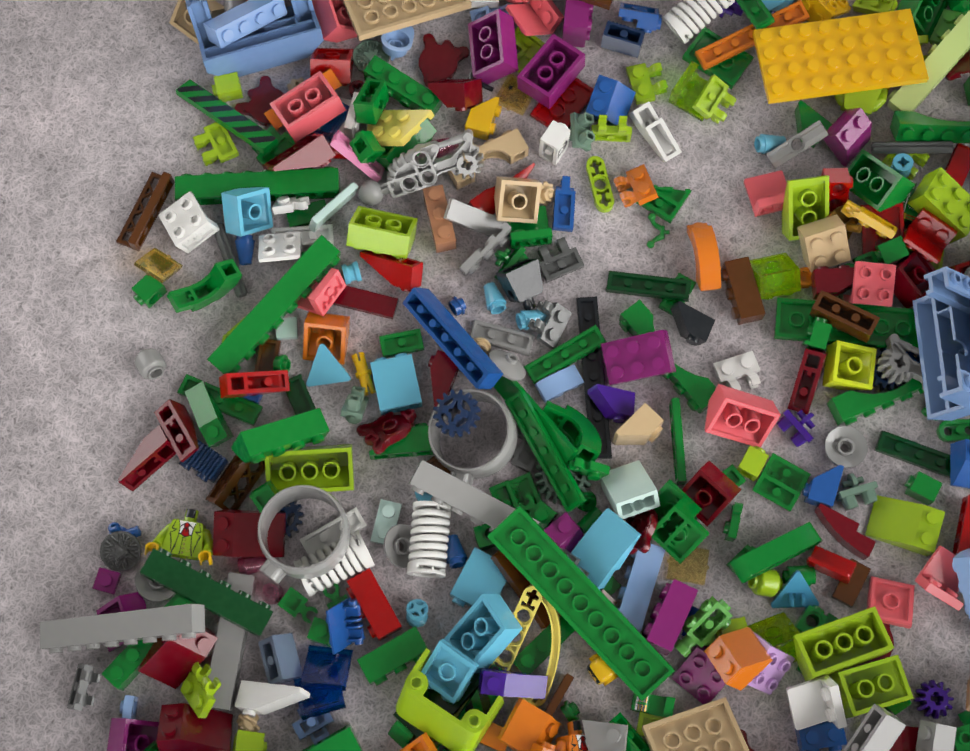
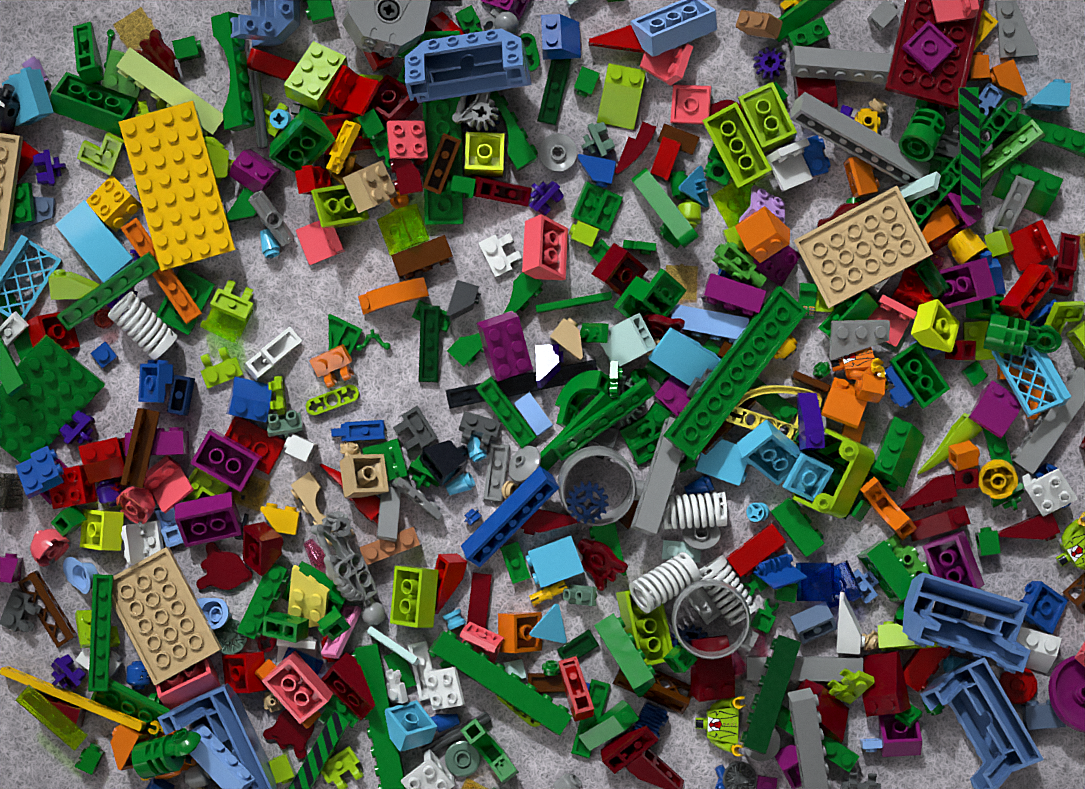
camera: 95 degrees left, 15 degrees up
(200, 261) = (462, 753): none -> sand green wheel
(355, 468) = (645, 588): none -> white piece
(642, 456) = (594, 332): none -> green plate

